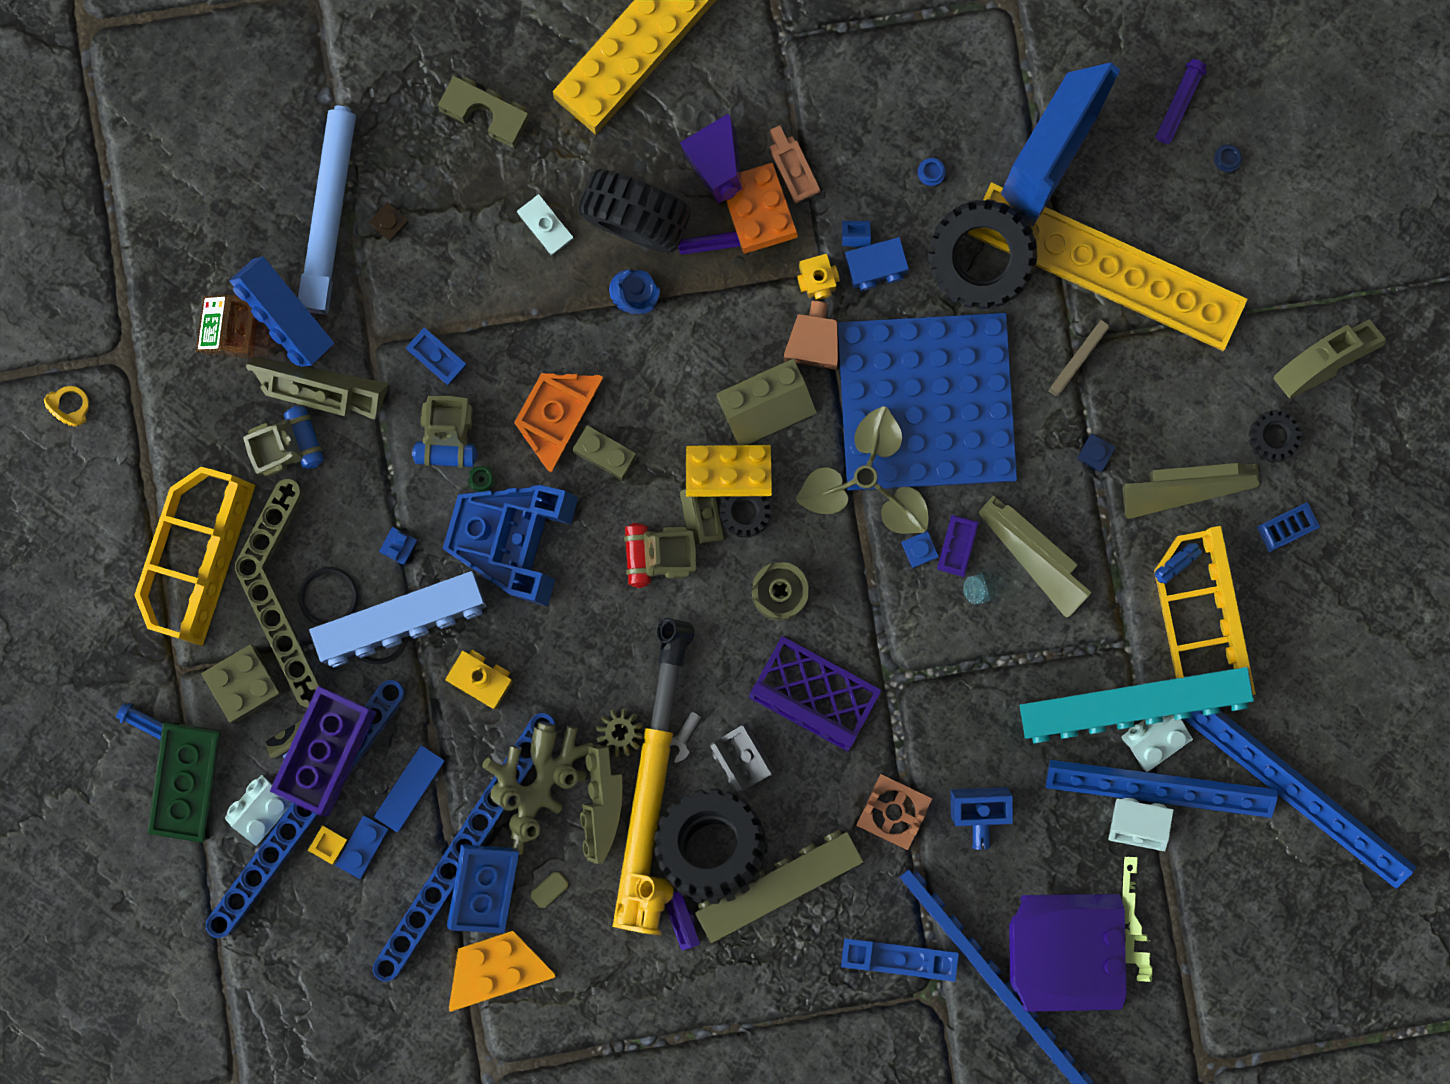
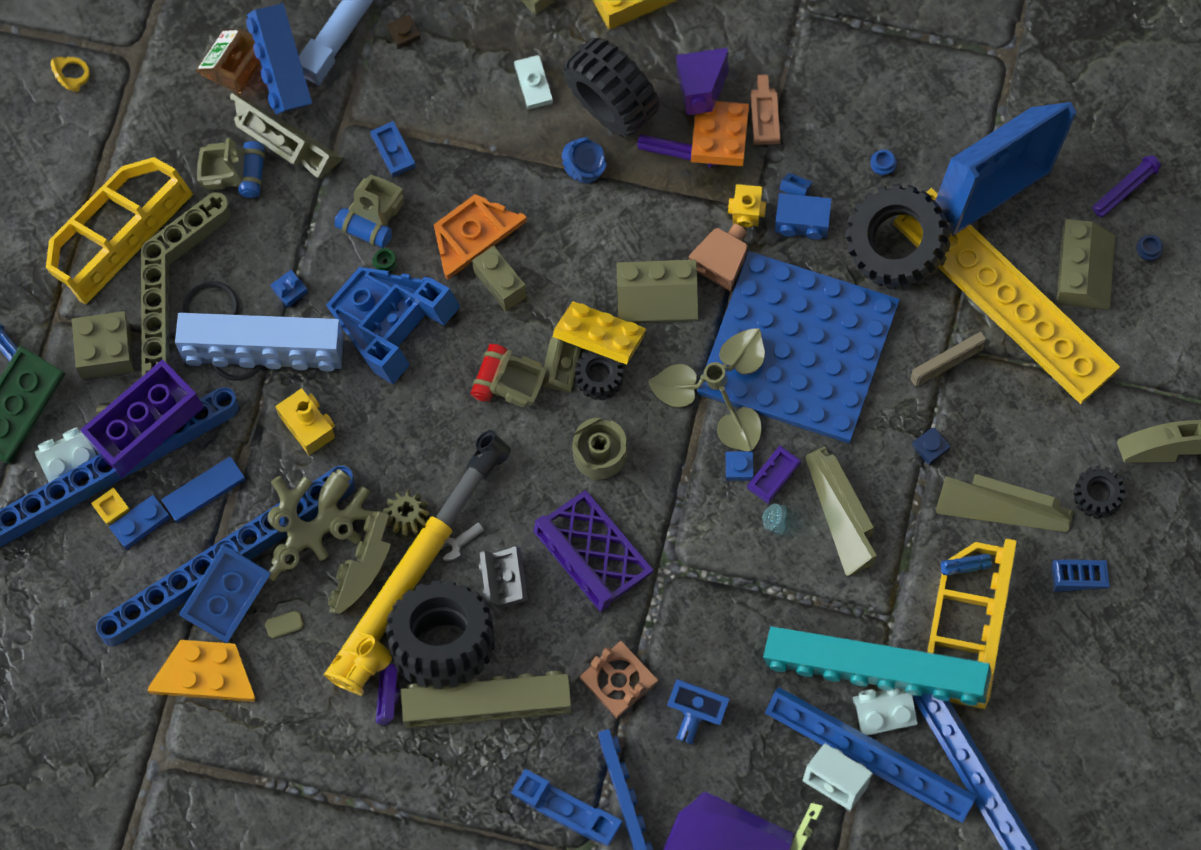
camera: 25 degrees right, 15 degrees down
(1173, 204) = (1085, 265): none -> olive slope

